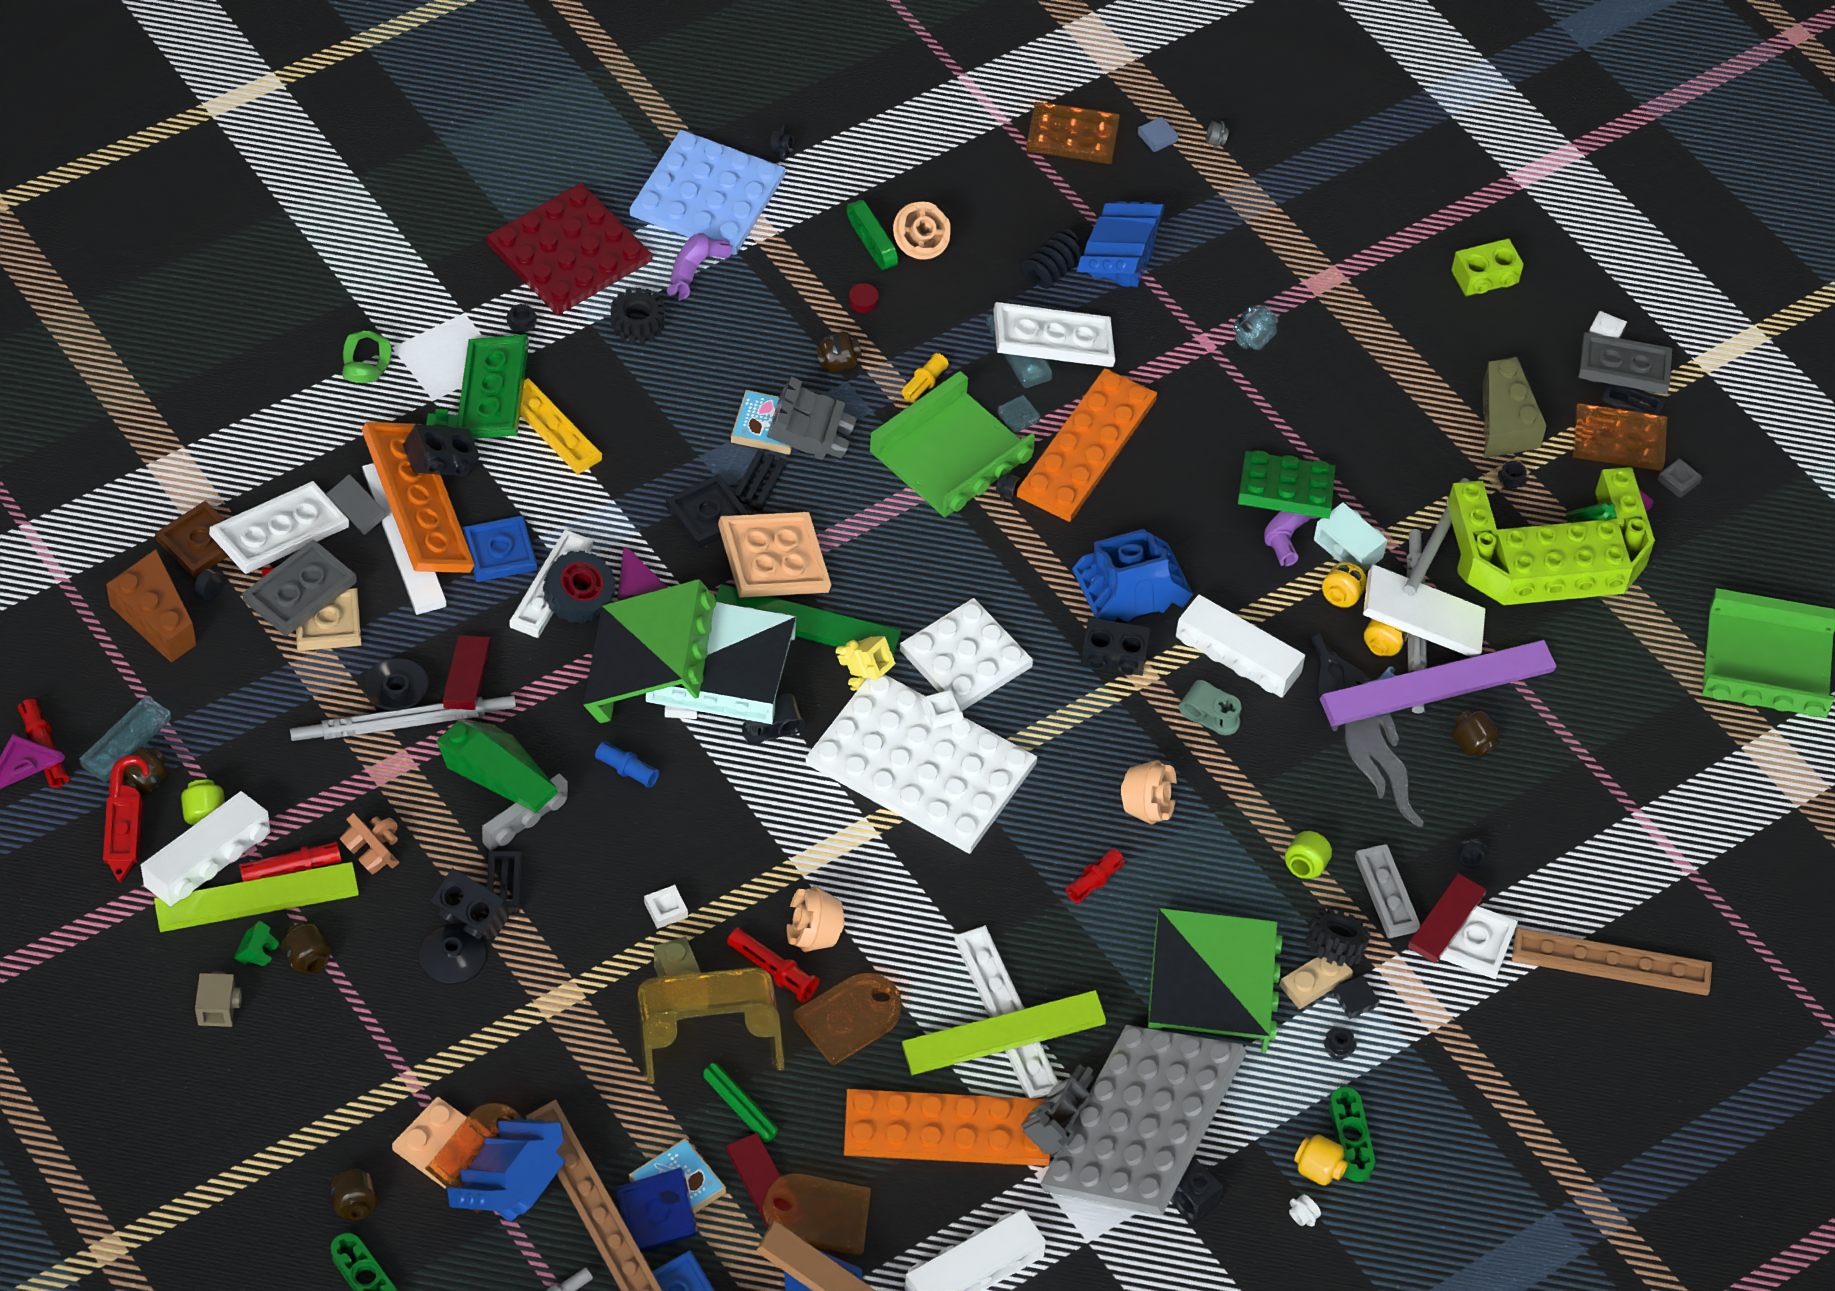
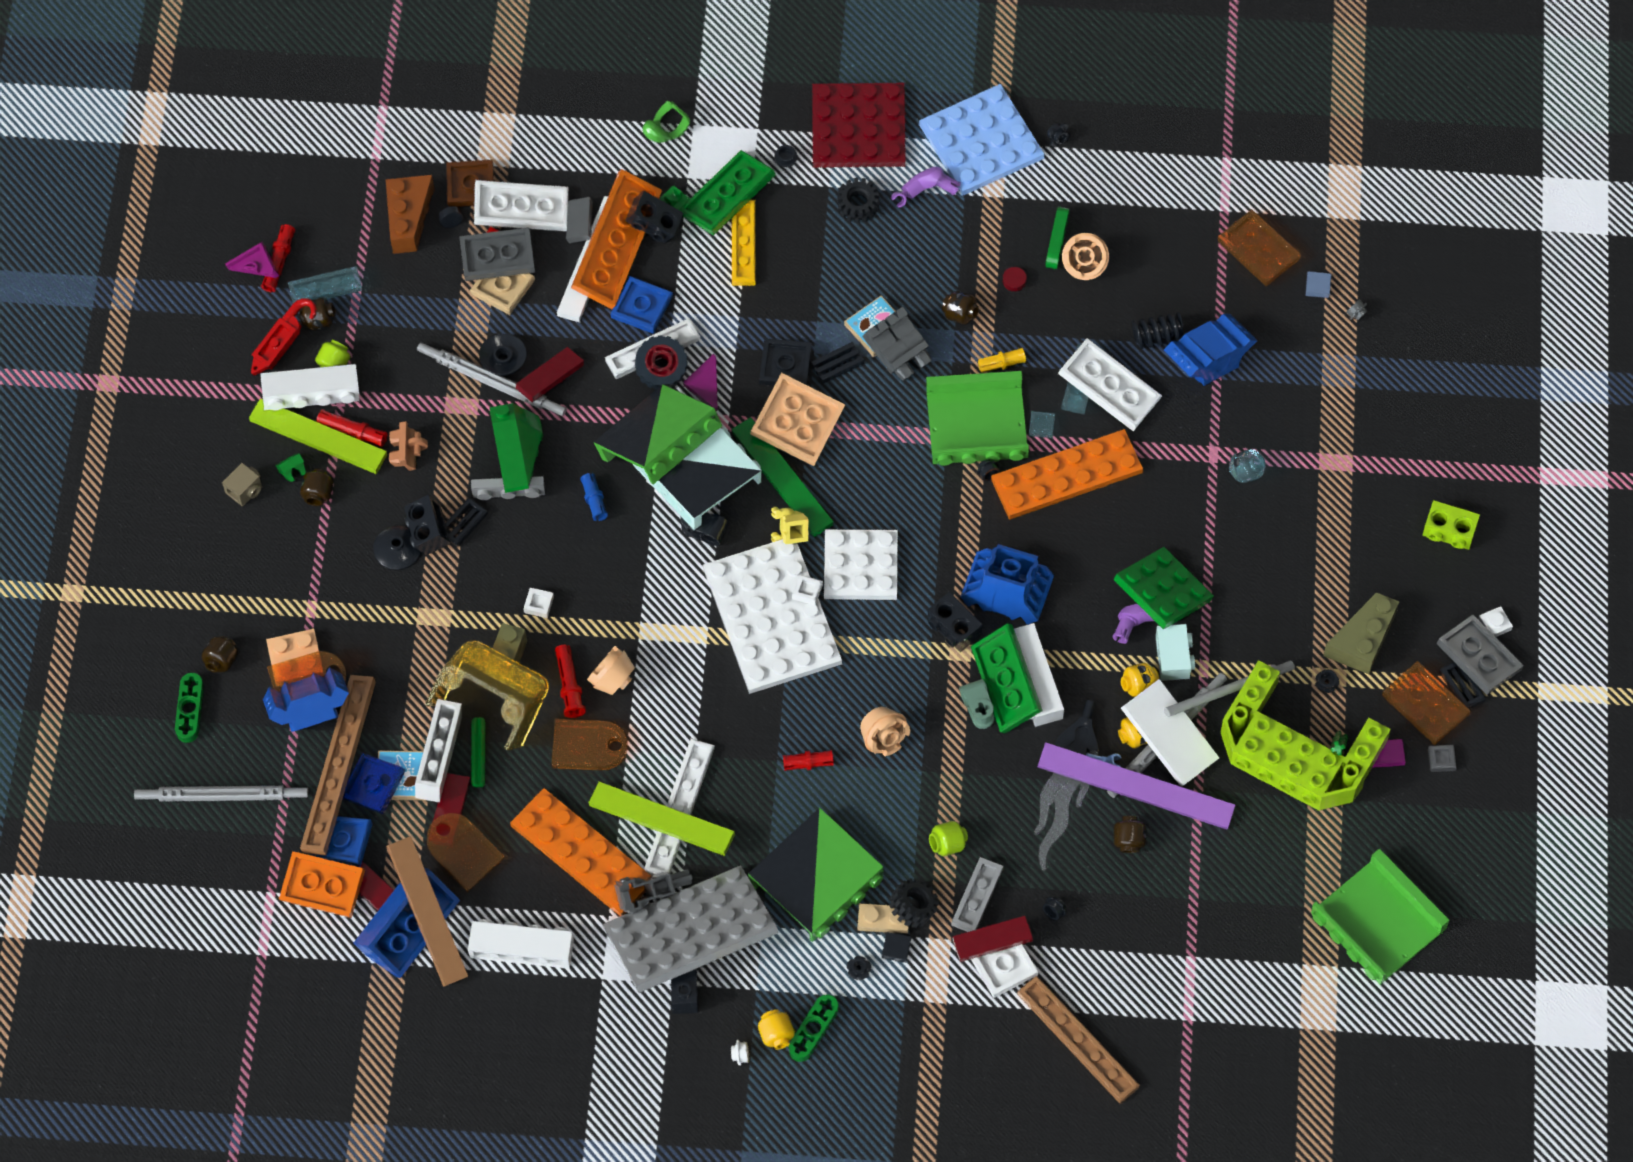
camera: 45 degrees right, 10 degrees up
(704, 1124) = (438, 750): none -> white brick
(1202, 651) = (1006, 678): none -> green tile

